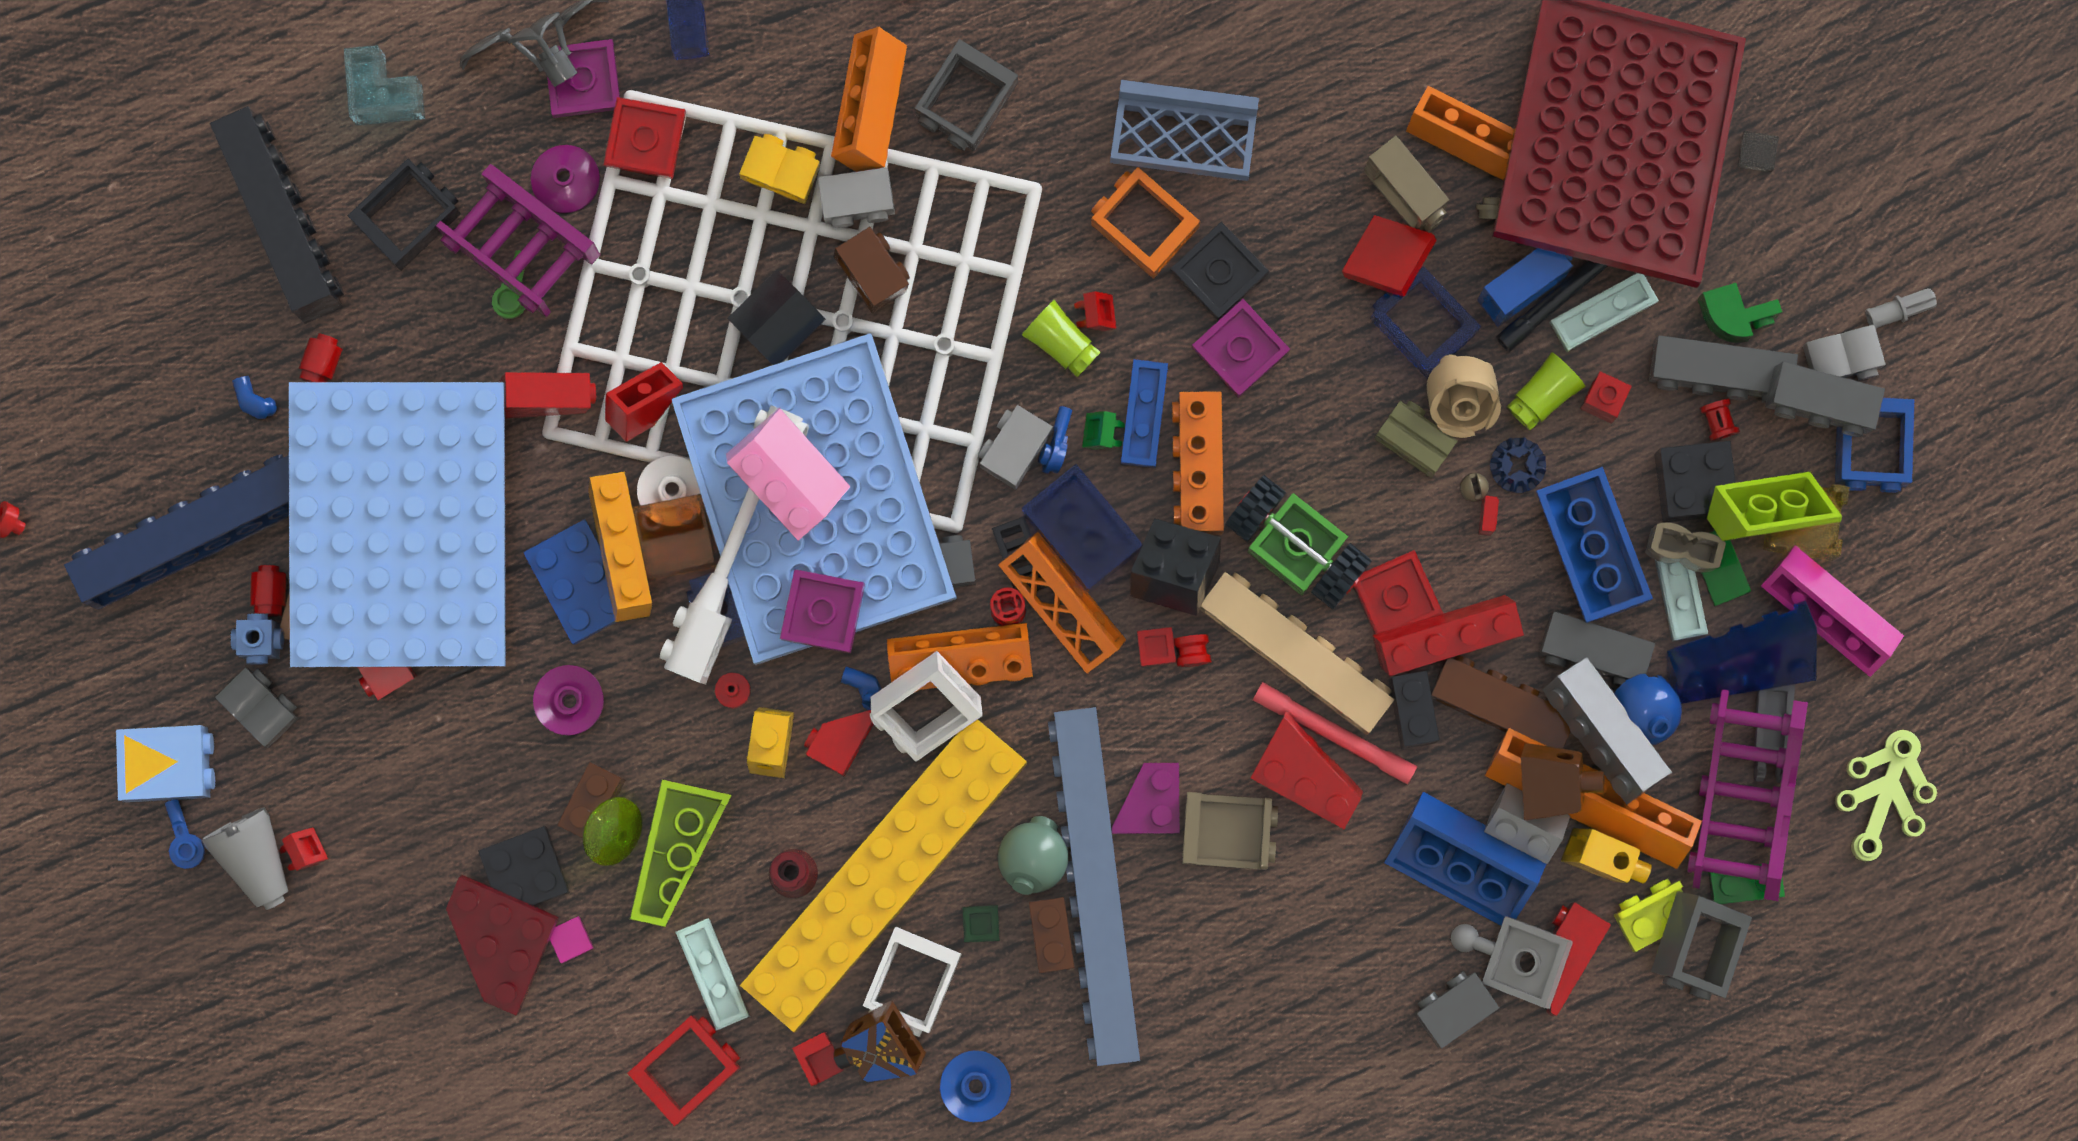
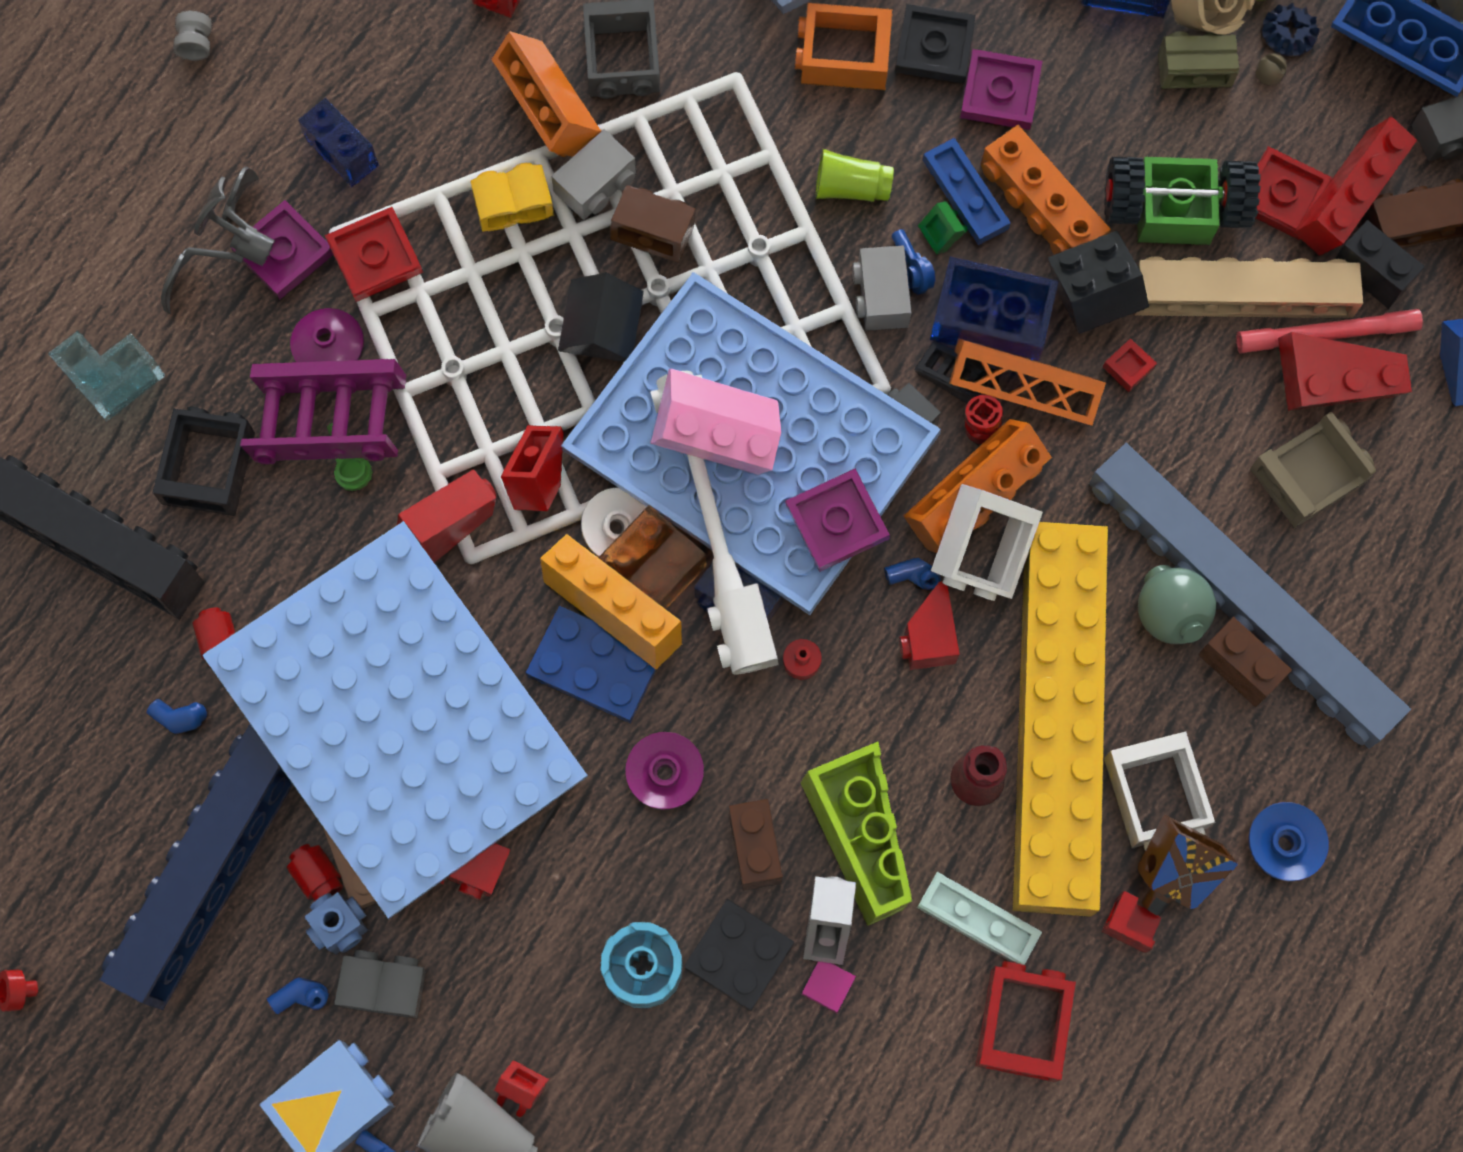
camera: 40 degrees left, 10 degrees down
(201, 669) = (299, 991): none -> blue arm
(426, 829) = (662, 954): none -> medium azure brick
(500, 940) = (768, 1032): dark red plate -> none
(598, 895) = (829, 920): none -> light grey brick
(612, 831) = (794, 854): clear neon green dish -> none
(770, 742) = (872, 675): yellow torso -> none
(981, 924) = (1173, 700): dark green tile -> none
(1098, 311) = (863, 137): red tile -> none
(1152, 802) = (1230, 491): magenta wing -> none
(1192, 650) = (1162, 345): red wheel -> none
(1488, 515) = (1303, 78): red tile -> none

